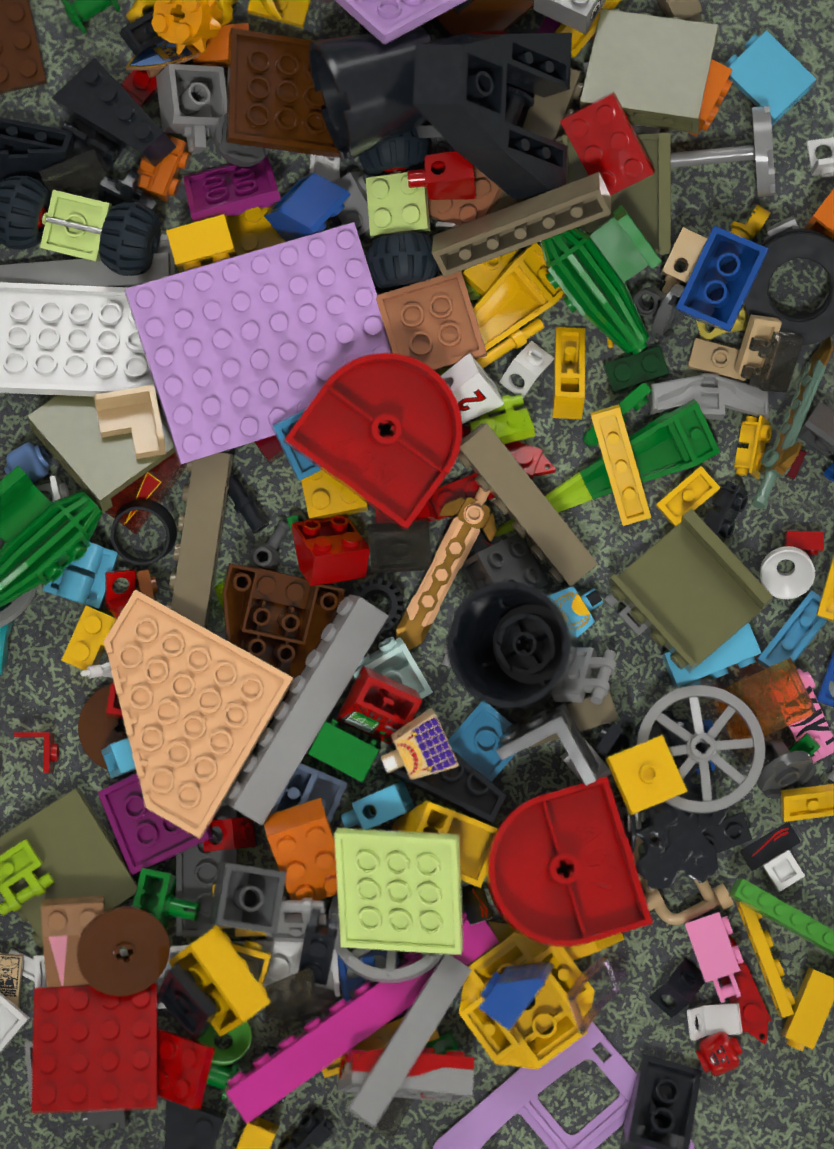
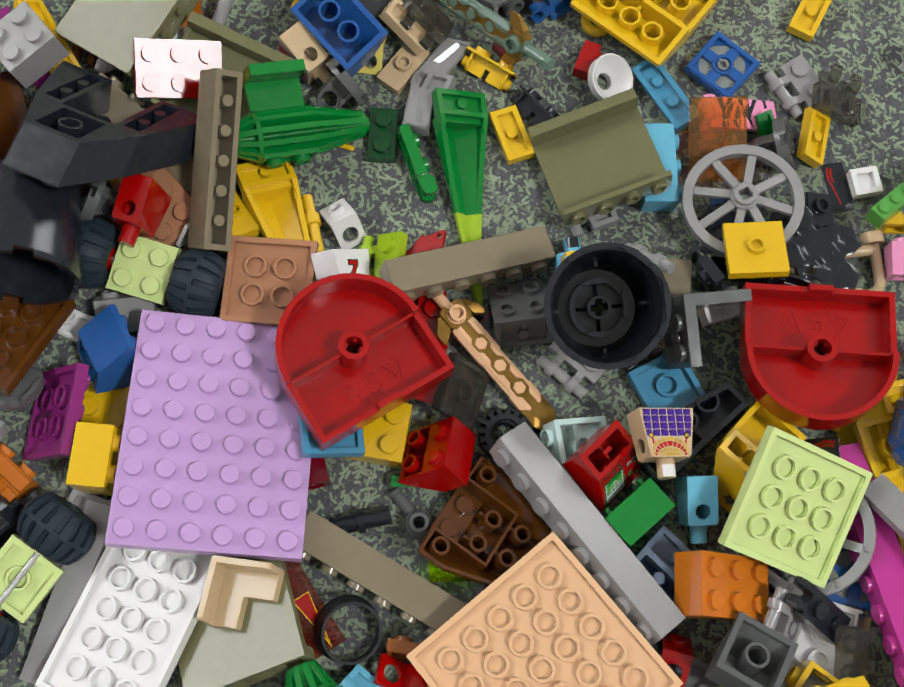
camera: 75 degrees left, 10 degrees down
(569, 373) = (365, 188): yellow slope -> none
(620, 465) = (463, 172): yellow plate -> none

